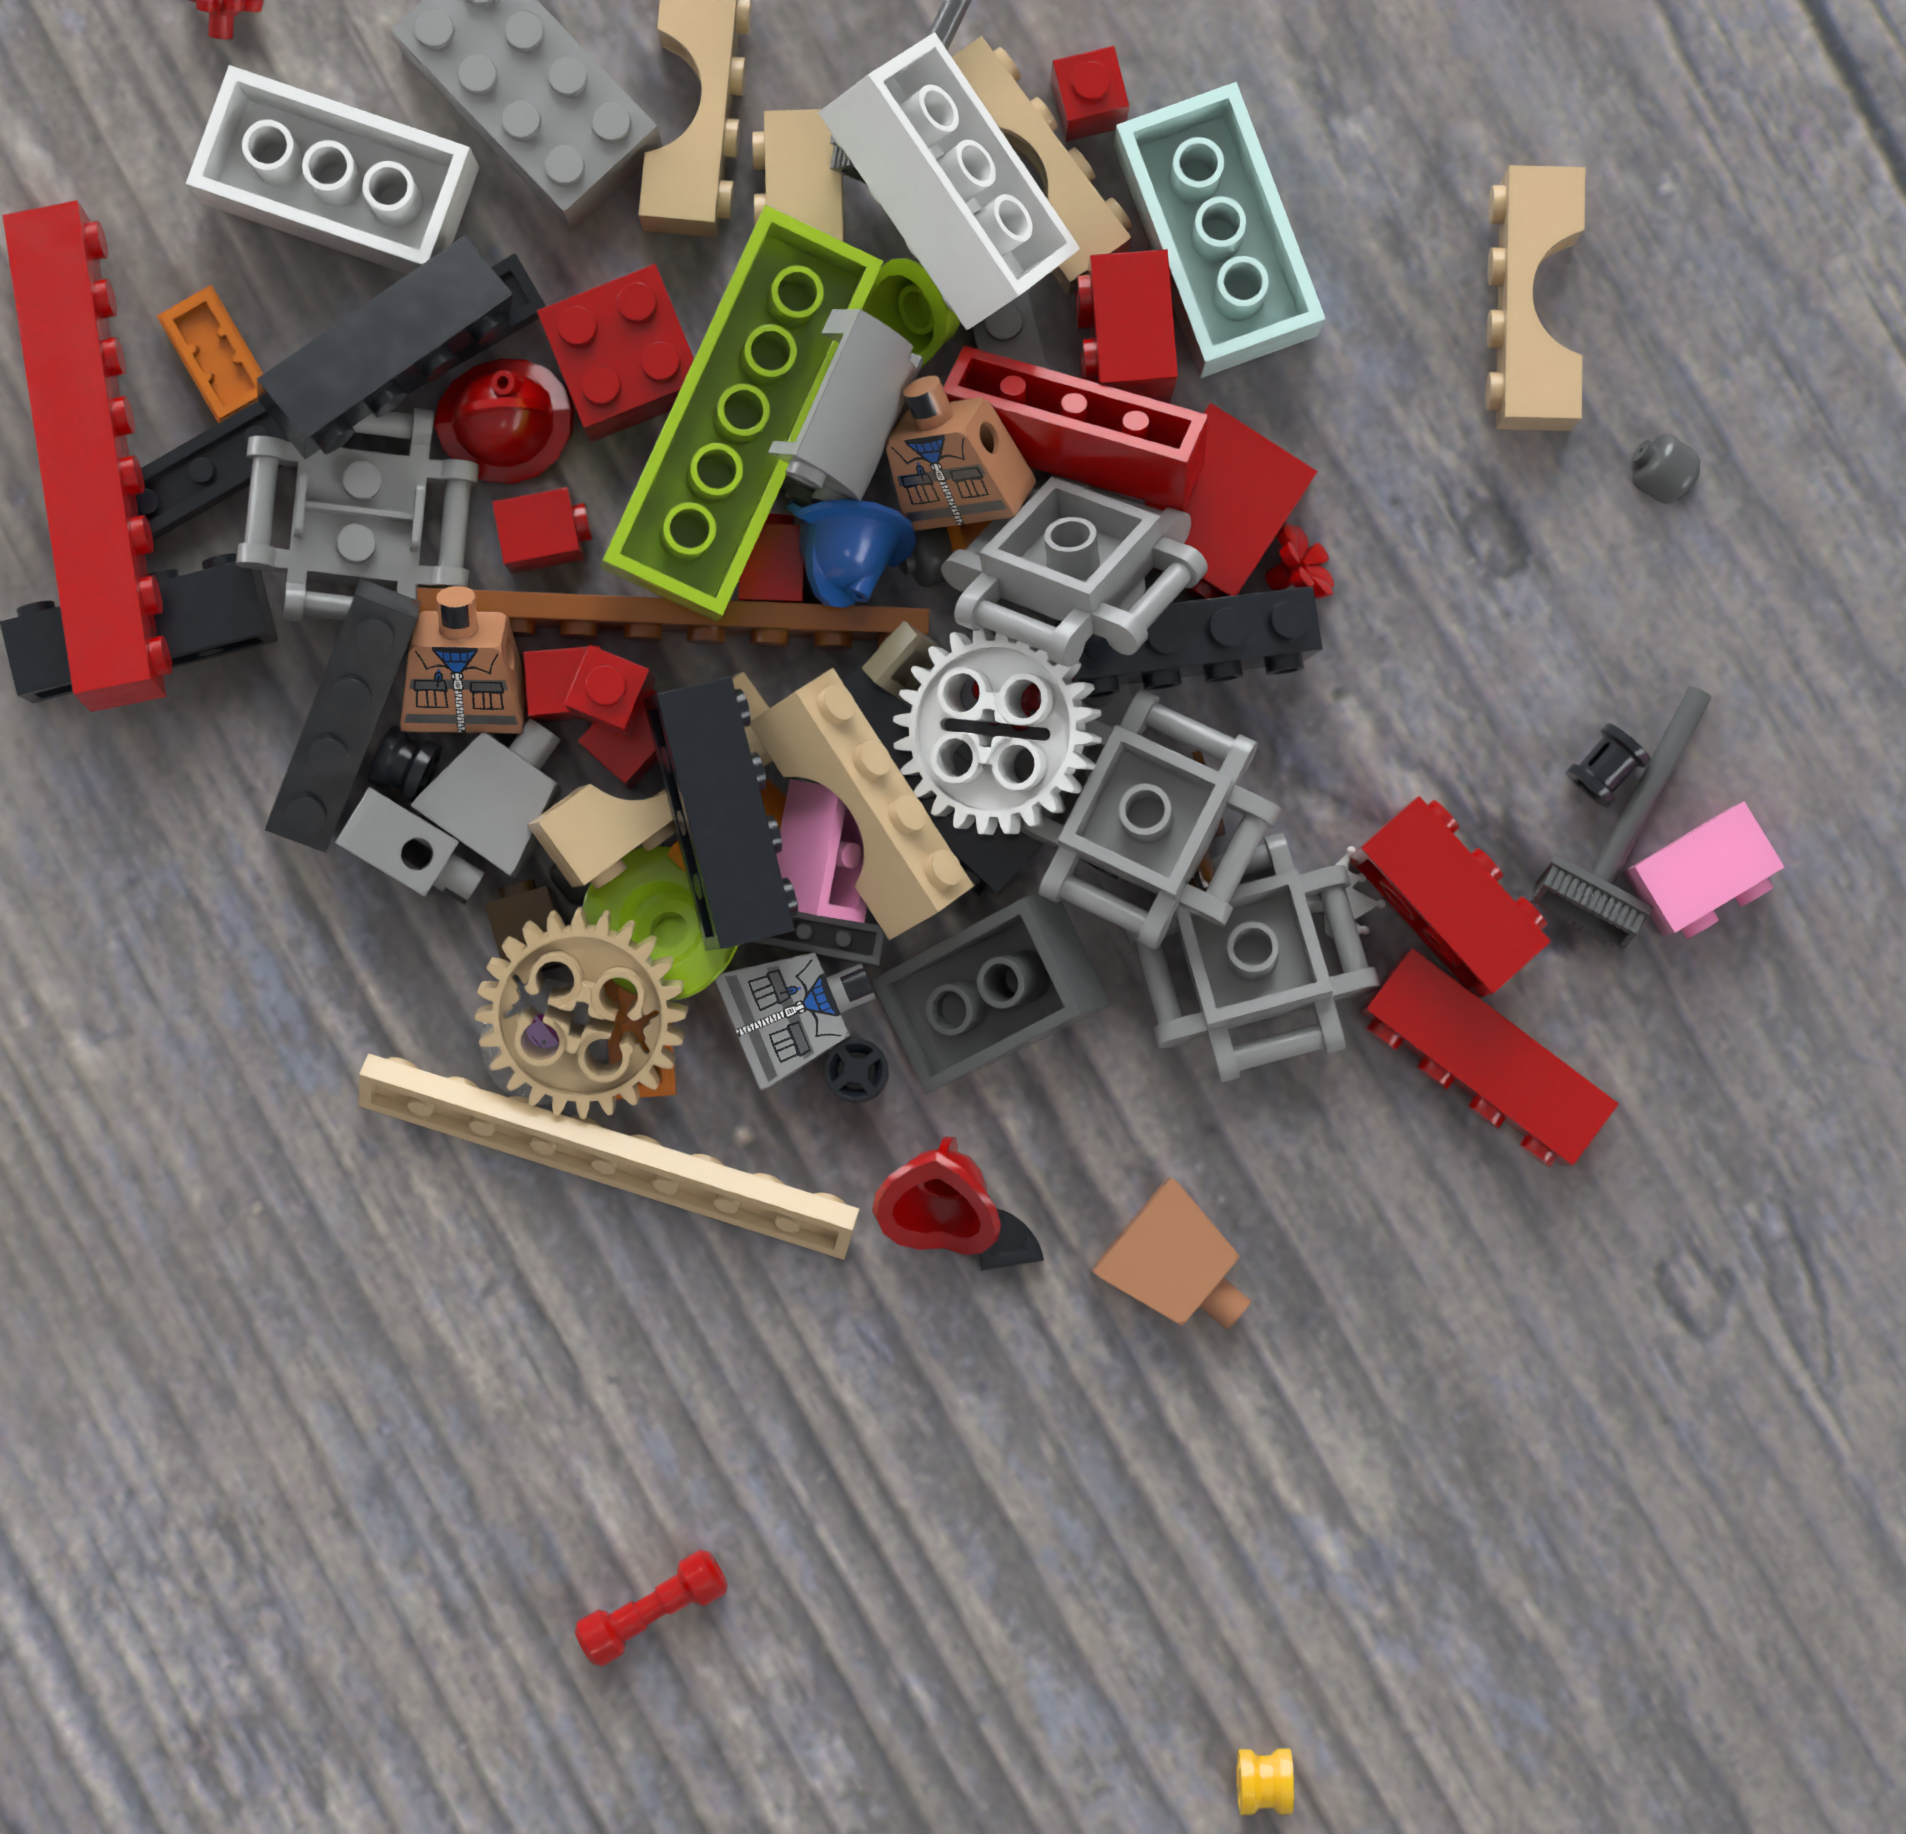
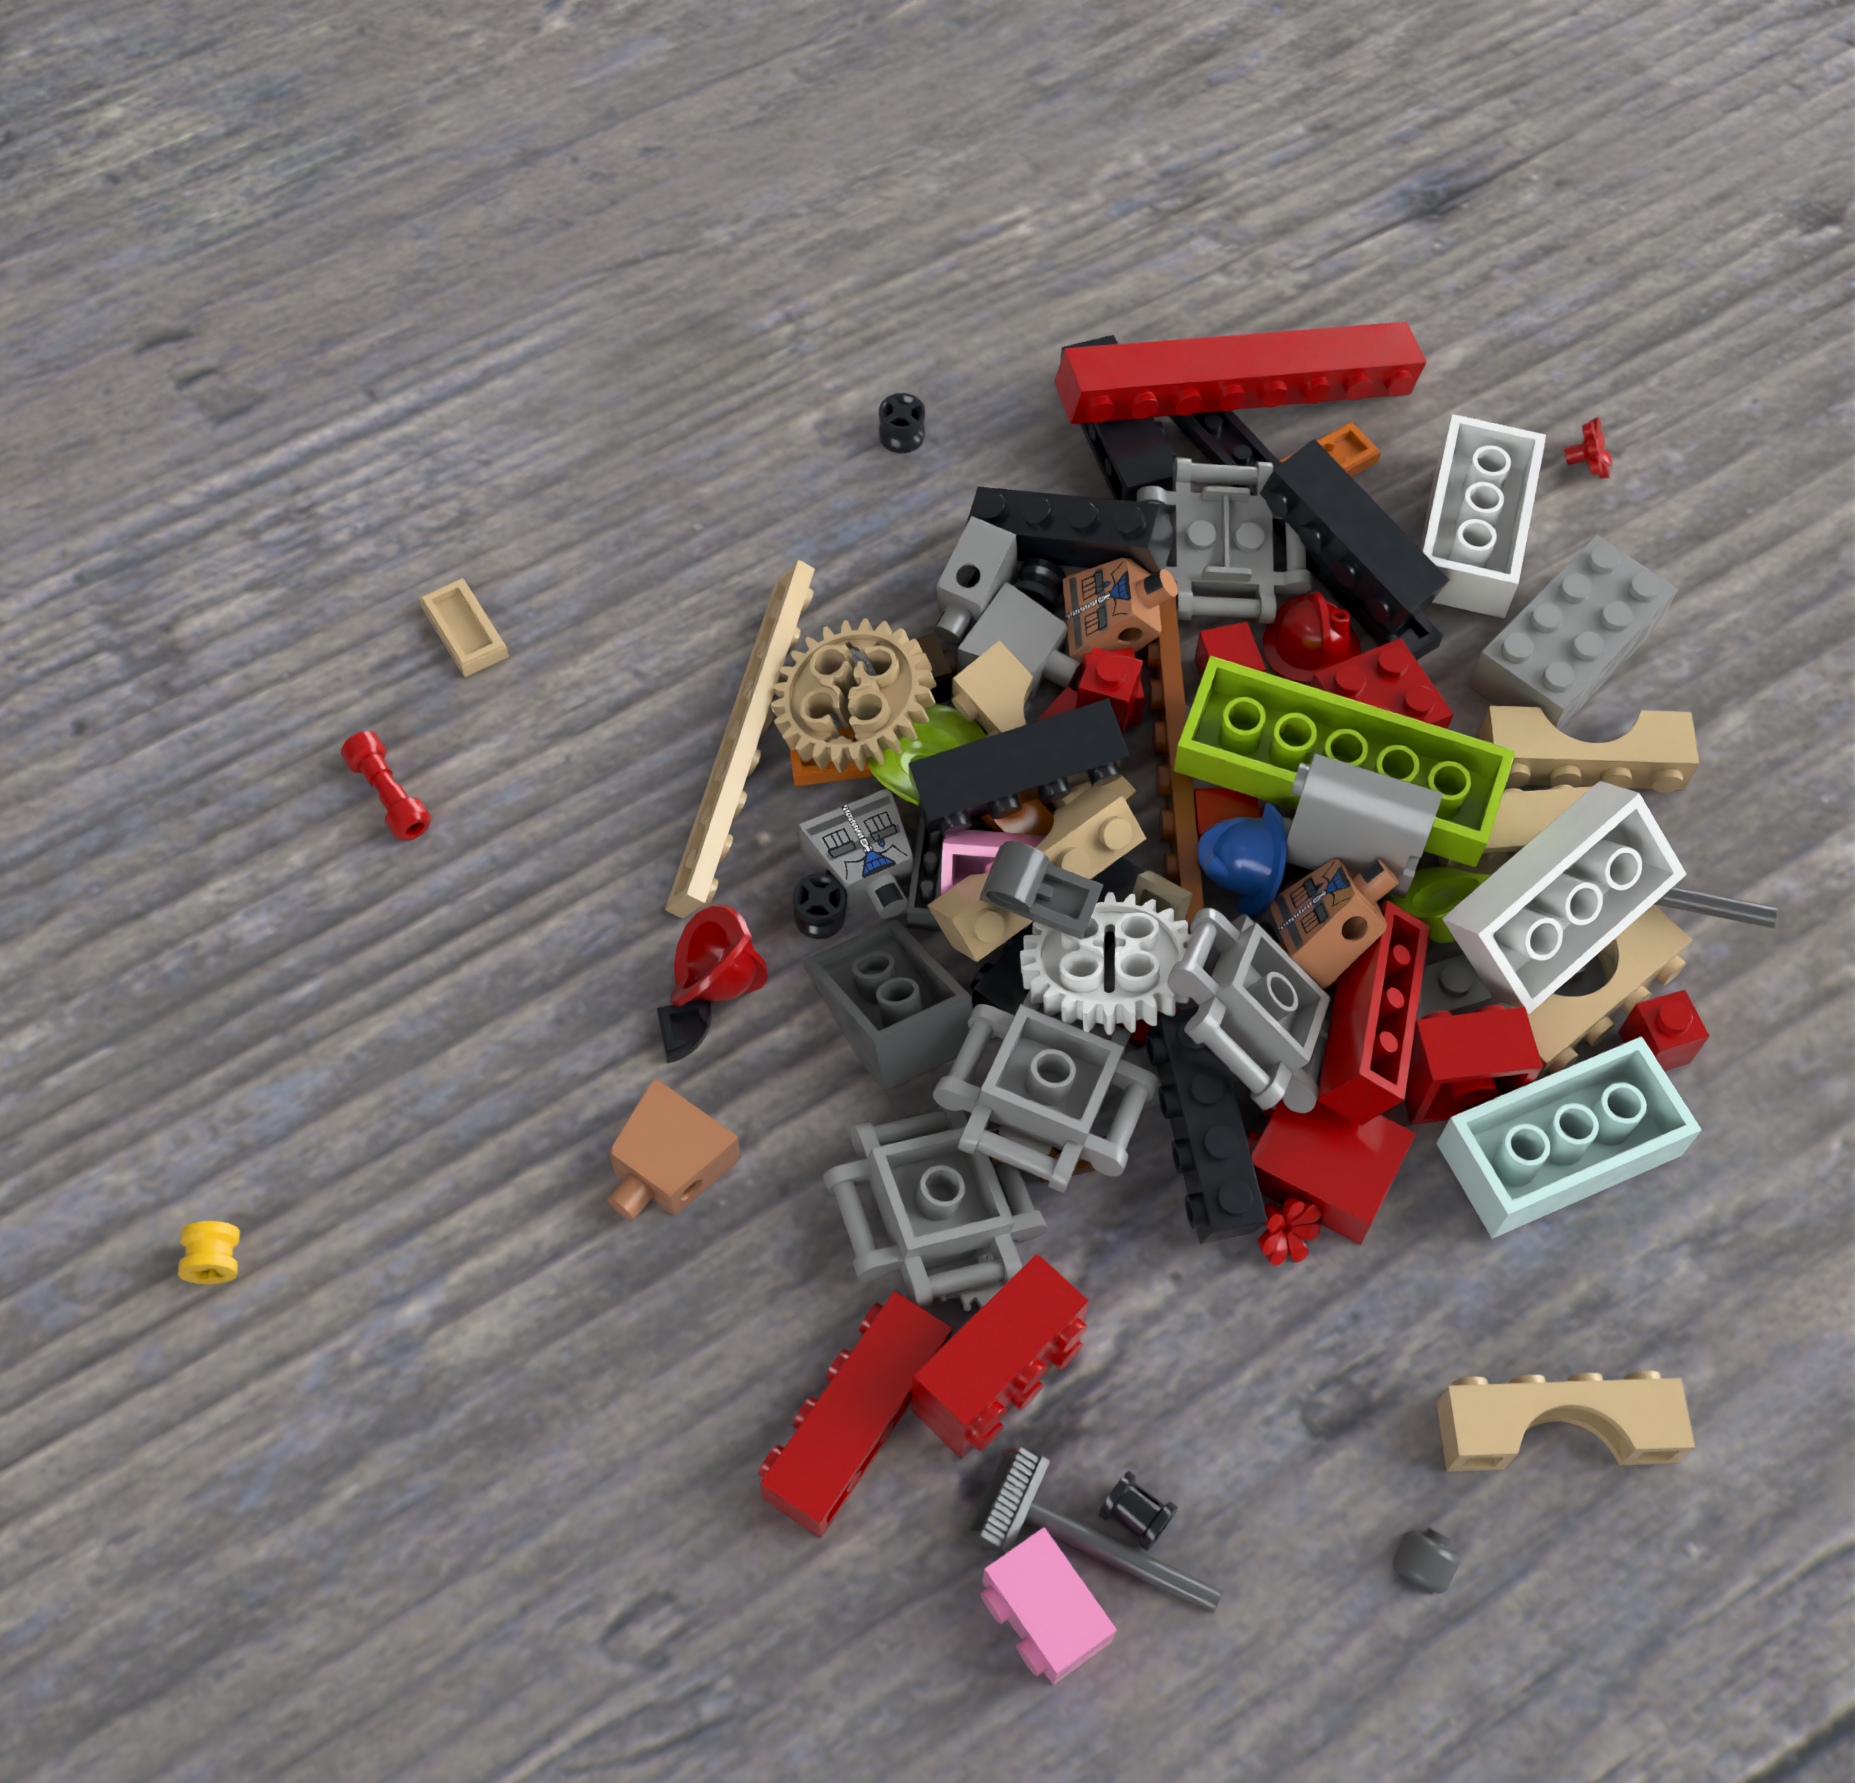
camera: 85 degrees right, 25 degrees down
(104, 916) = (901, 423): none -> black wheel
(407, 1517) = (463, 627): none -> tan tile
(926, 803) = (1039, 891): none -> dark grey plate

